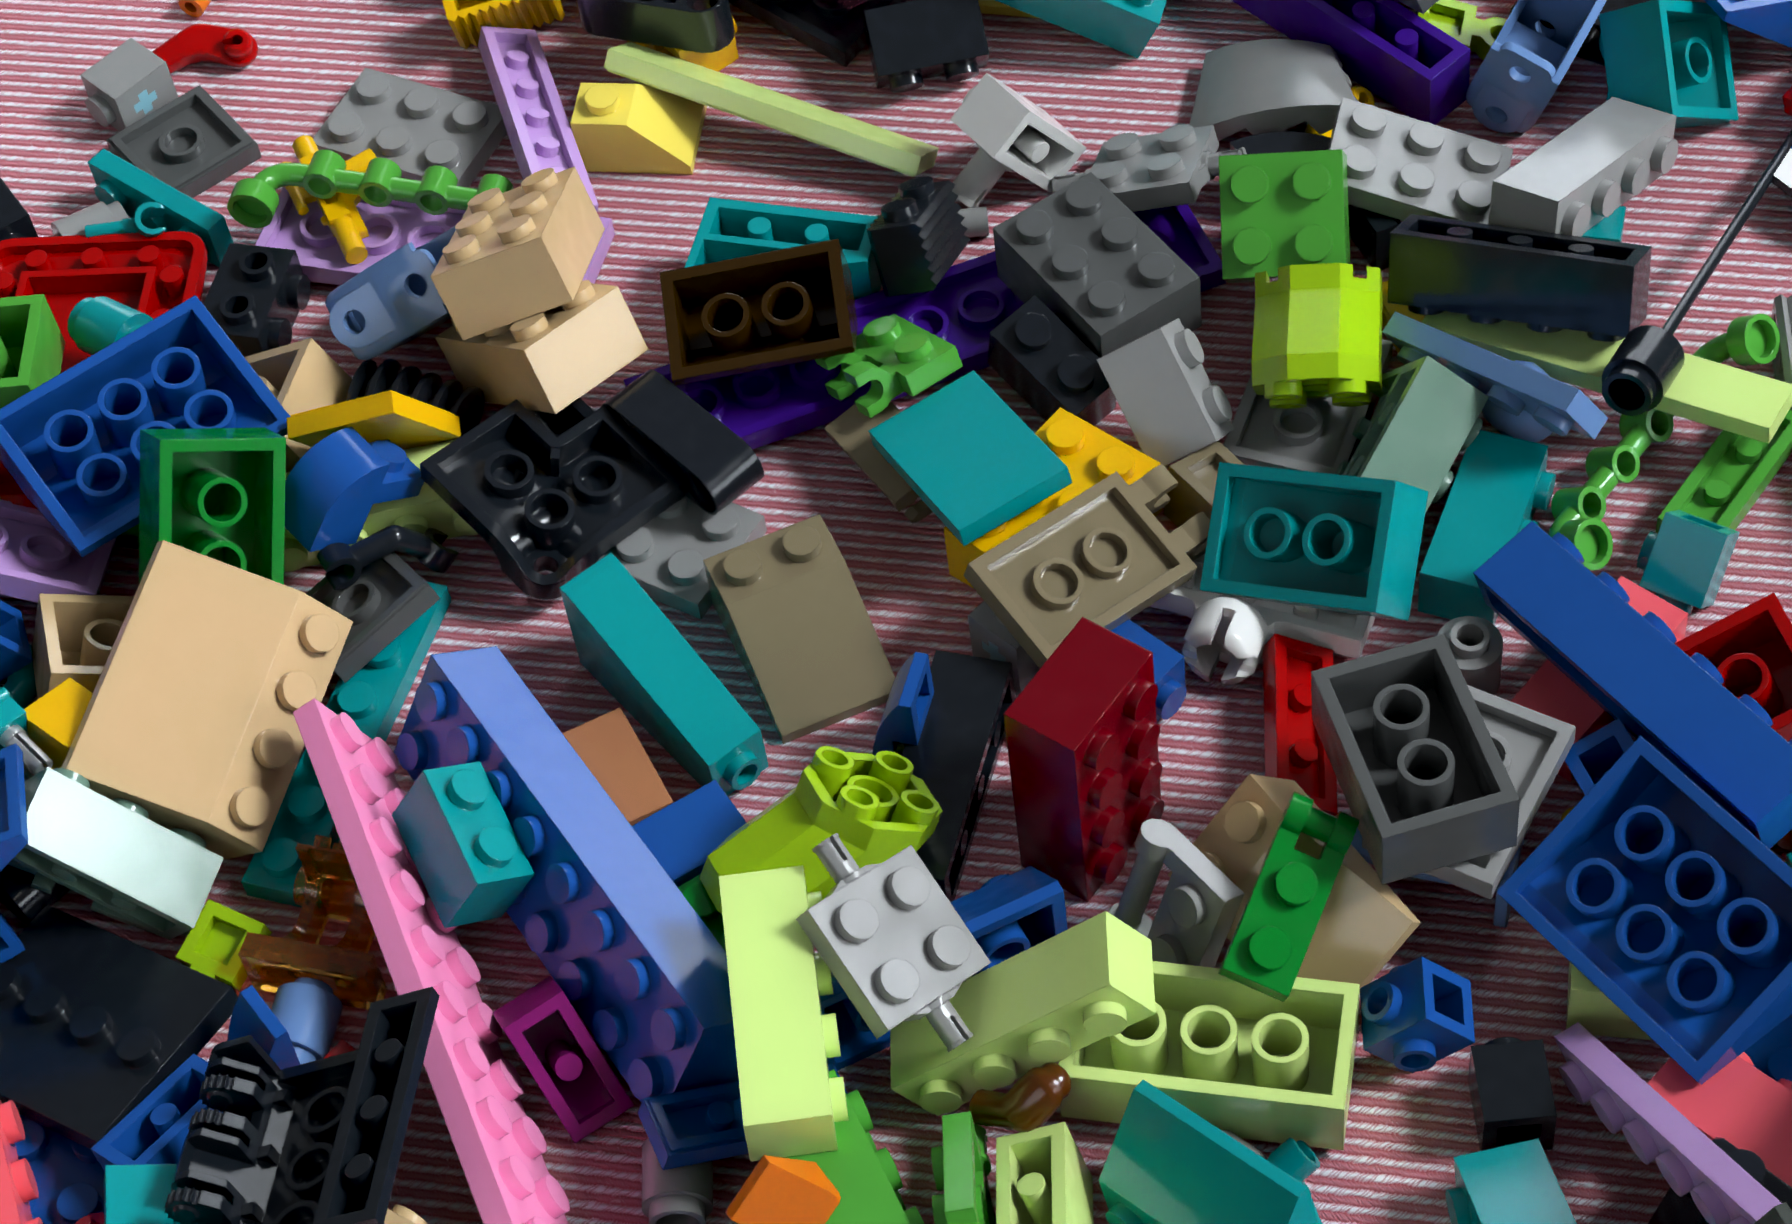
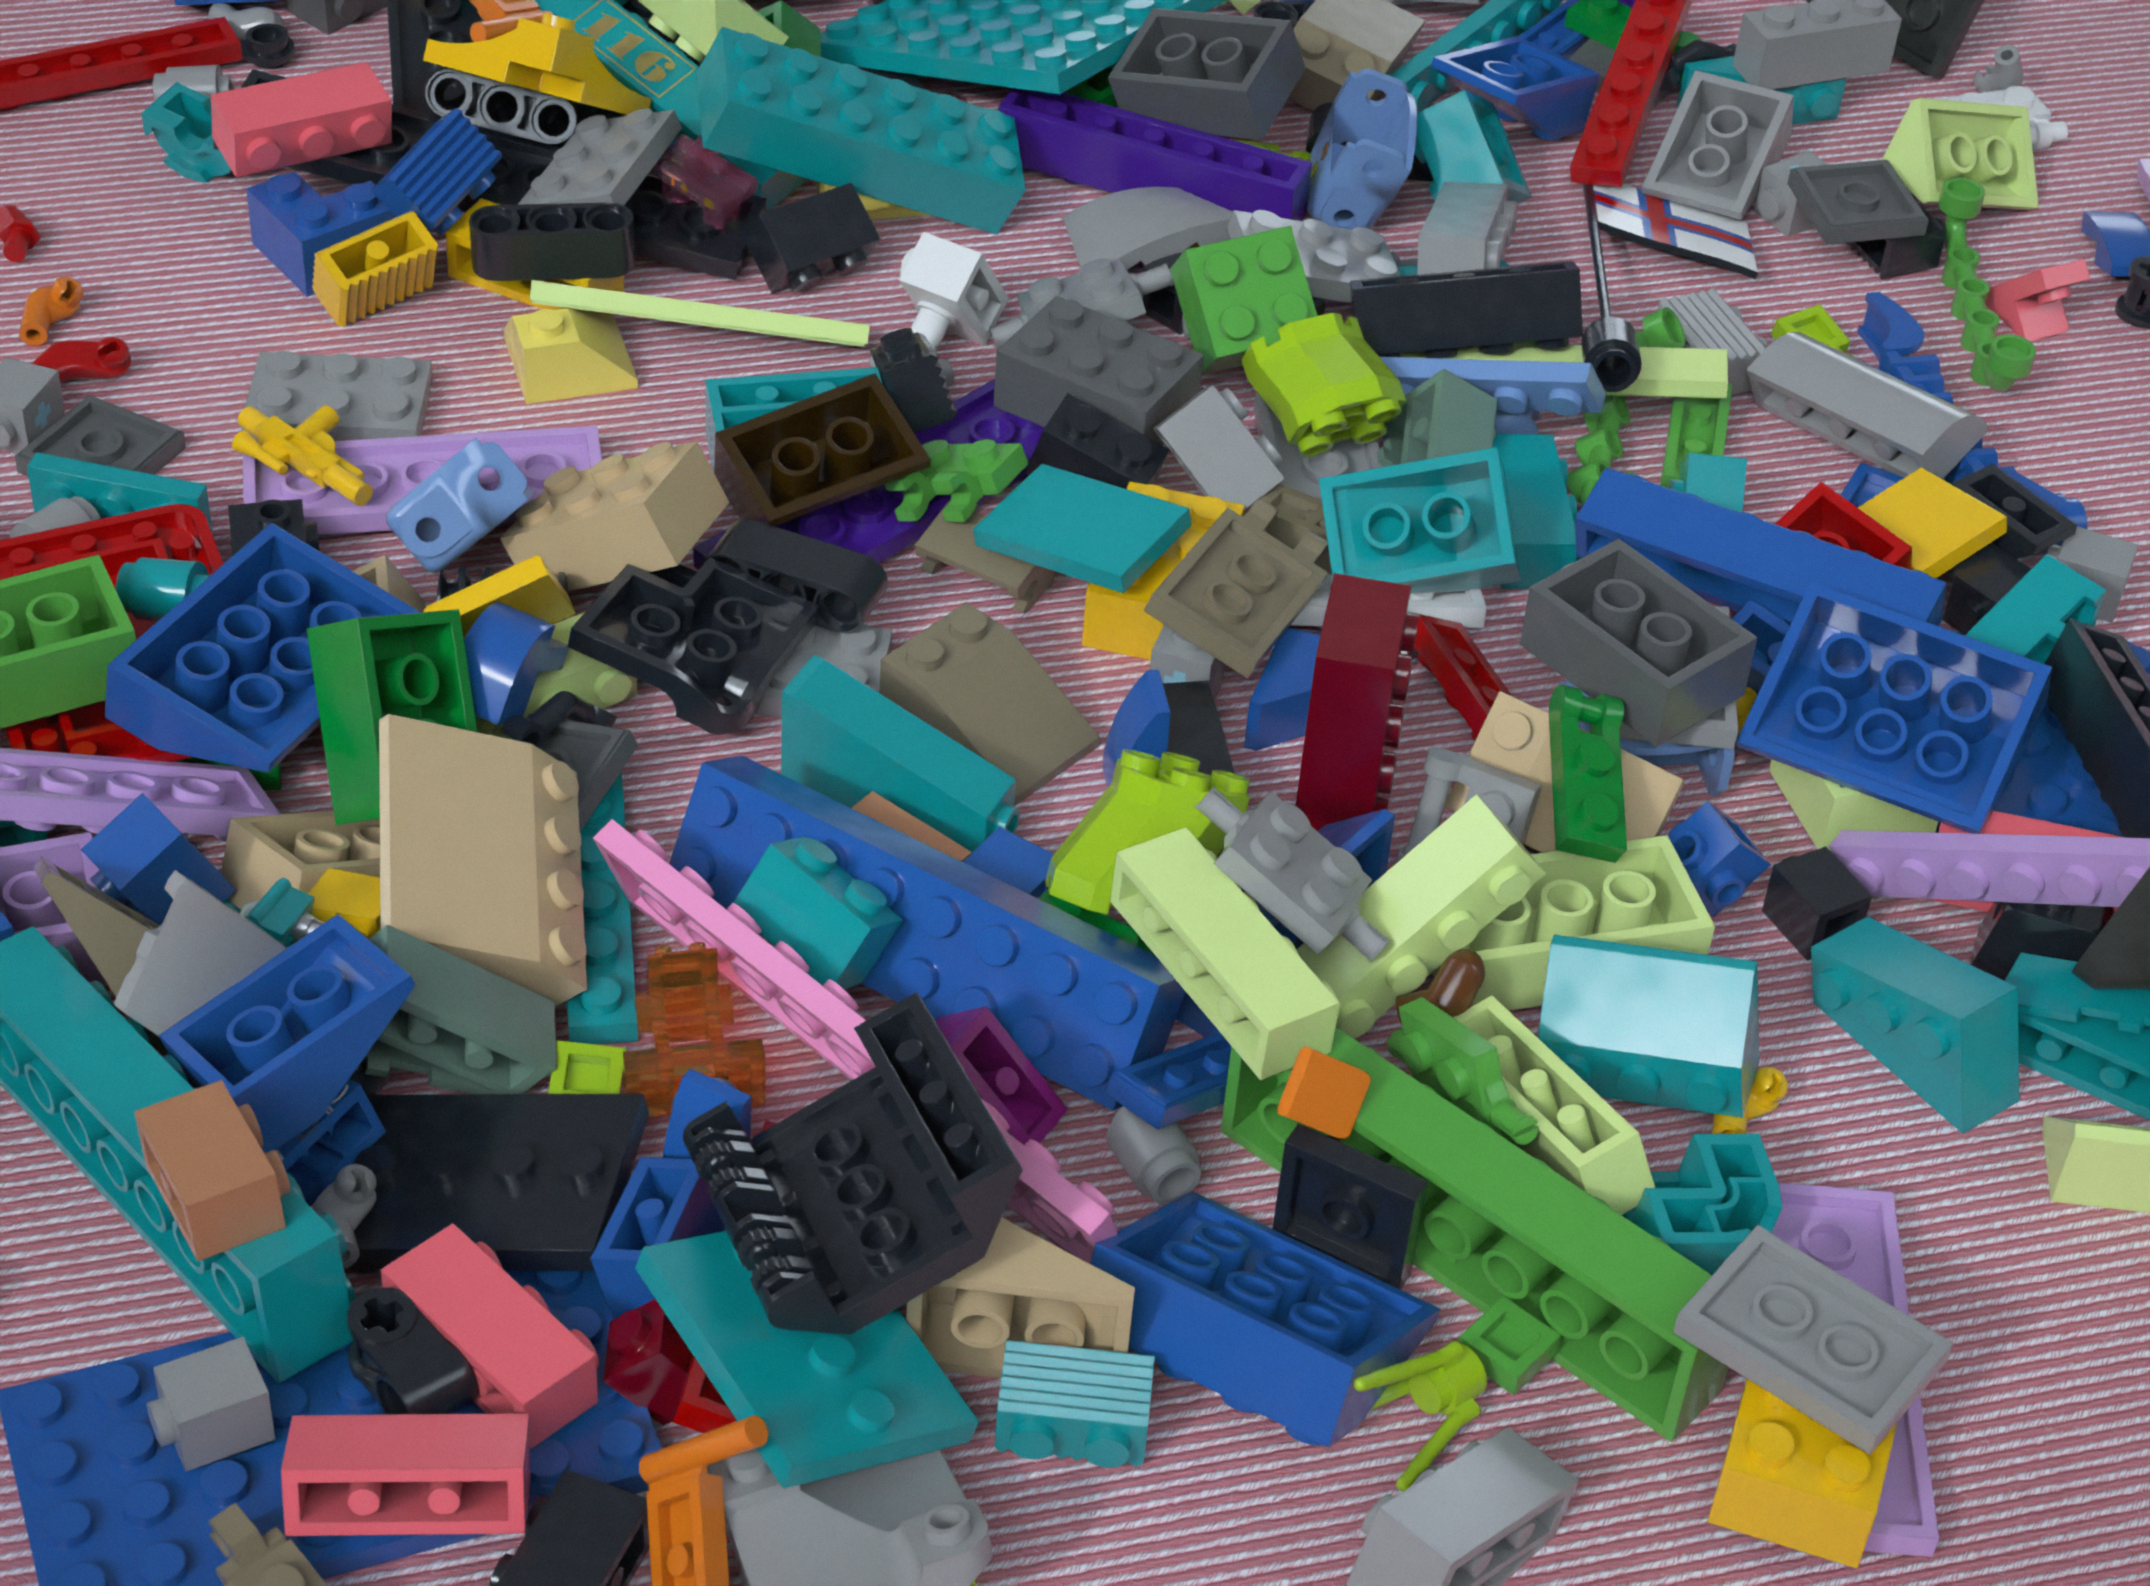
camera: 35 degrees left, 10 degrees down
(131, 225) = (118, 506): teal hand -> none
(256, 201) = (247, 459): bright green bar -> none
(518, 252) = (576, 434): tan brick -> none
(530, 103) = (488, 360): lavender plate -> none

